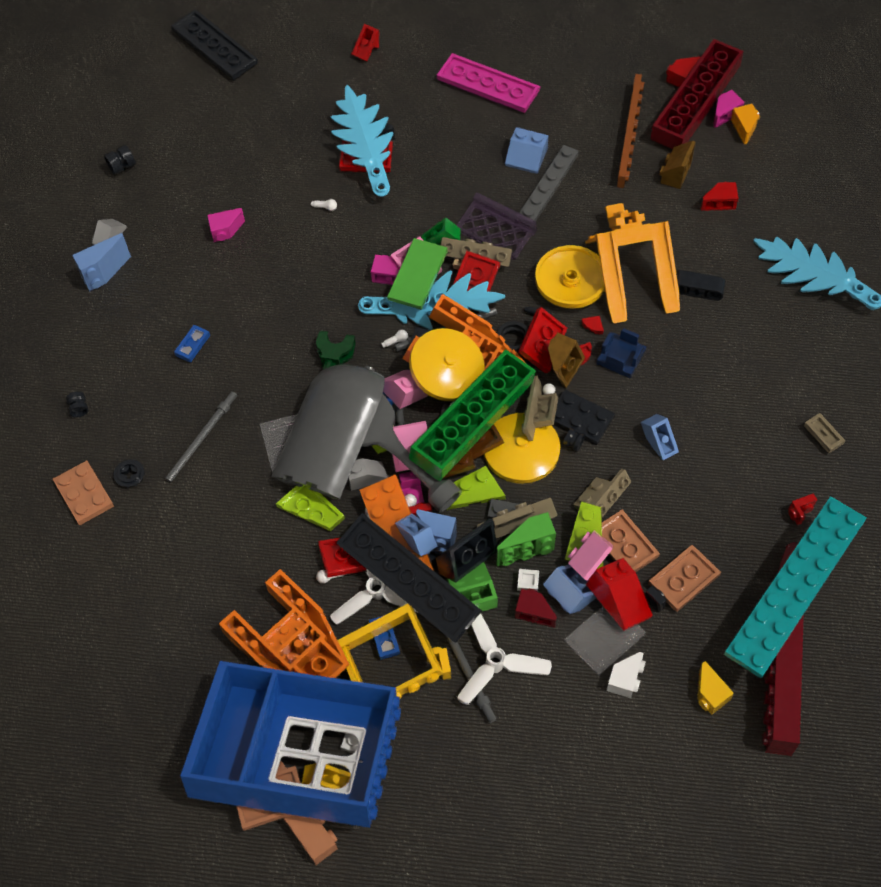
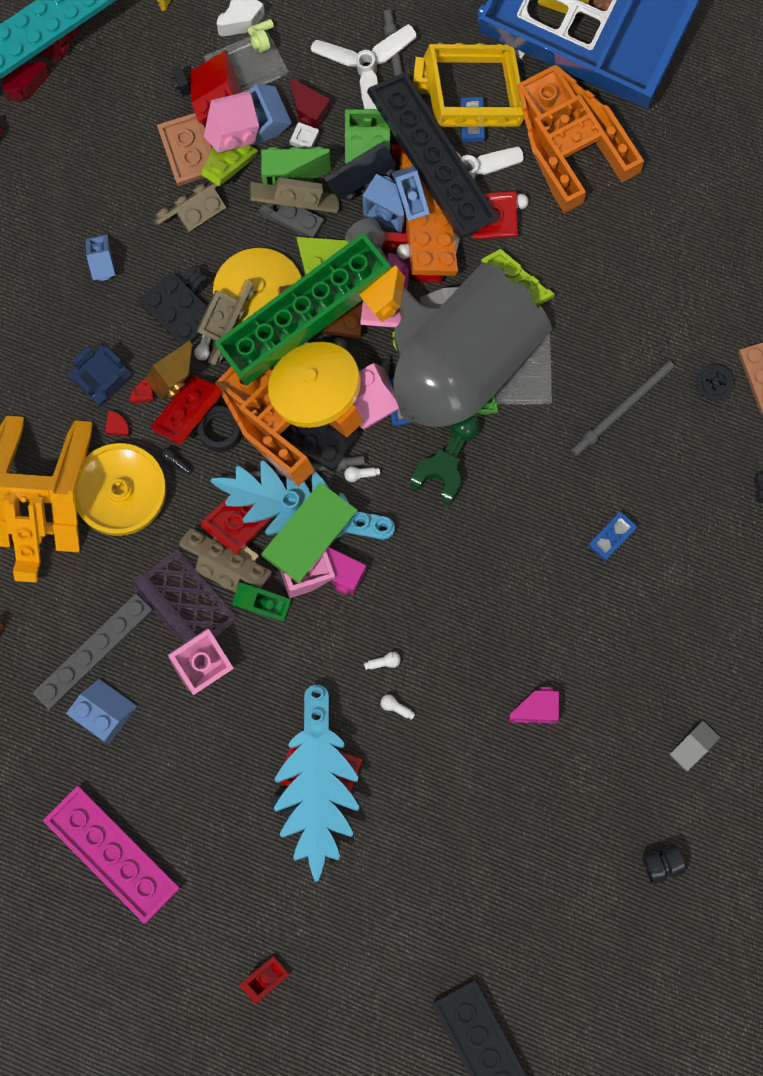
camera: 165 degrees left, 15 degrees up
(102, 261) = (722, 678): medium blue slope -> none
(337, 229) = (391, 660): none -> white piece
(409, 433) = (385, 294): none -> light orange slope
(466, 184) = (200, 662): none -> bright pink slope
(599, 648) = (258, 36): none -> yellowish green plate
(685, 577) = (141, 96): nougat plate -> none

